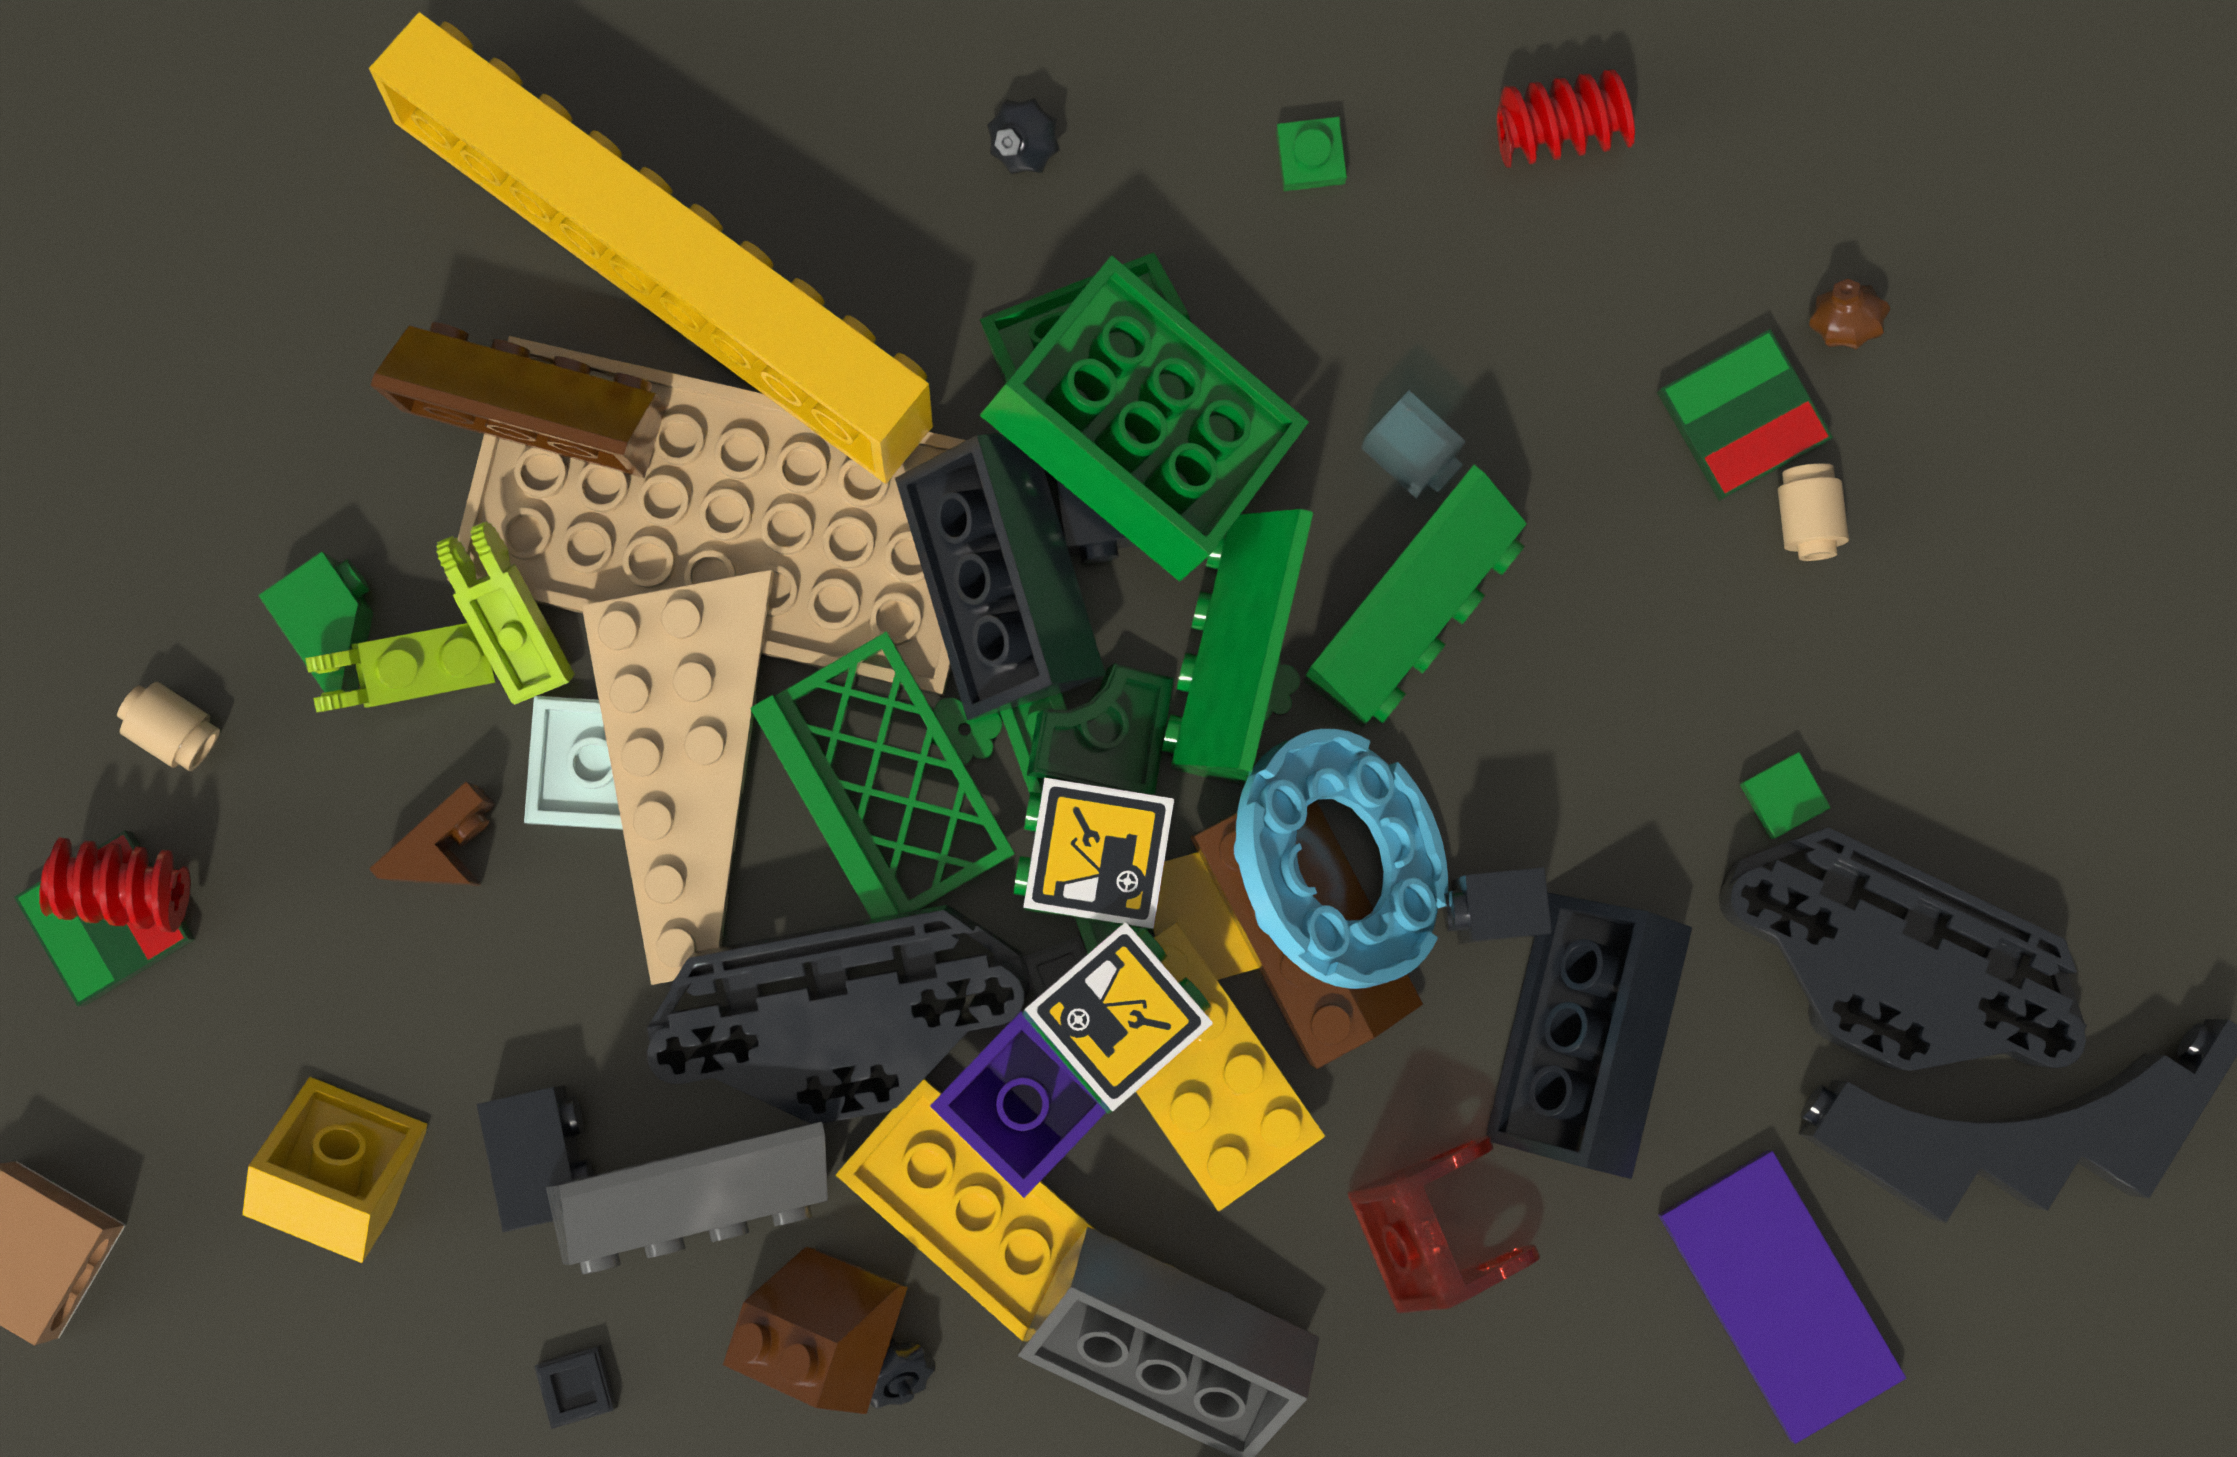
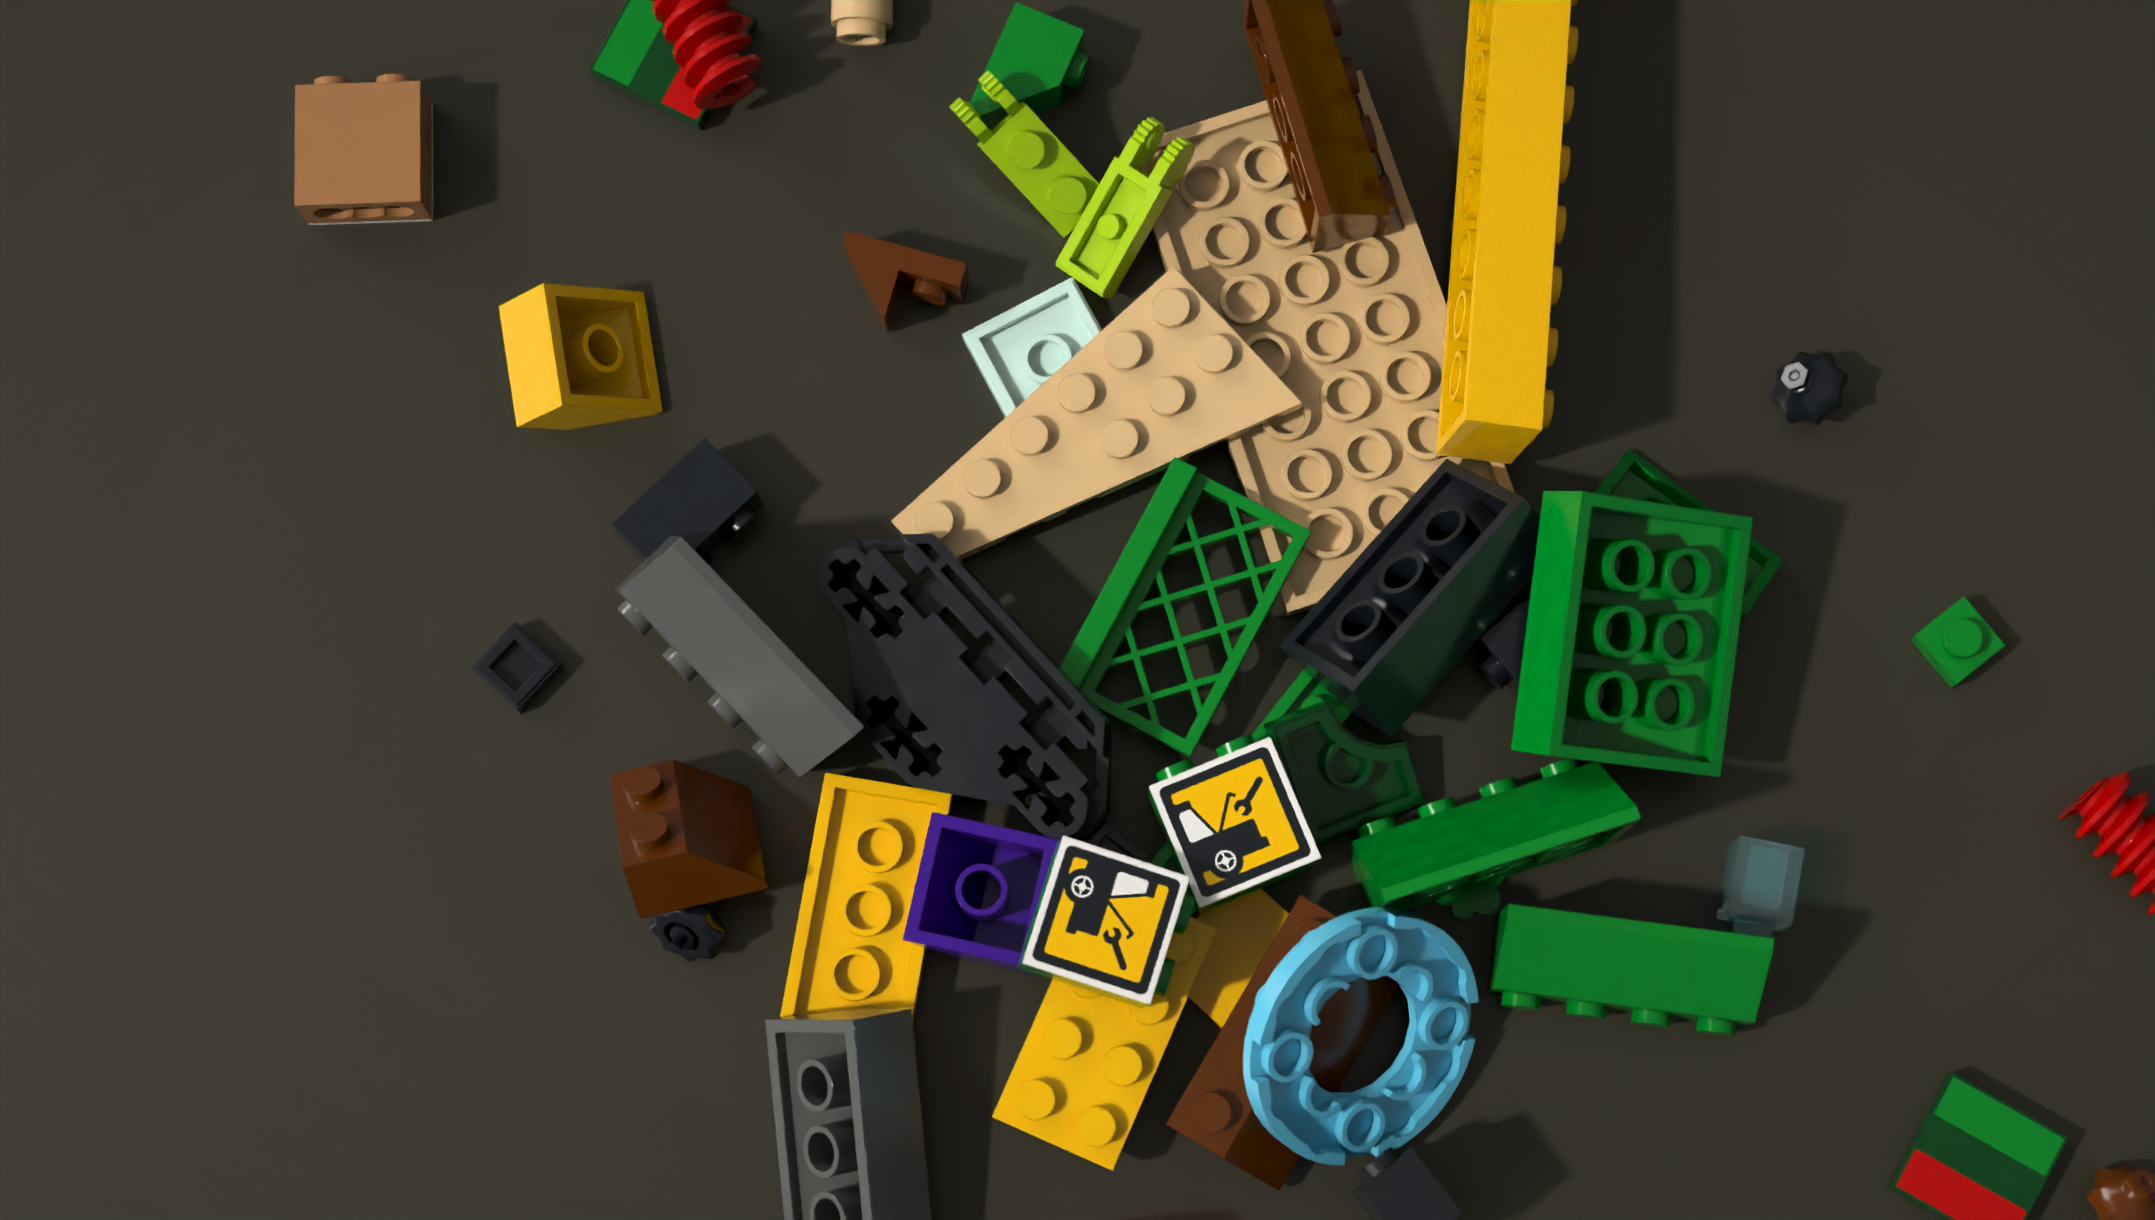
camera: 60 degrees right, 5 degrees down
(983, 730) = (1277, 667): green plant -> none

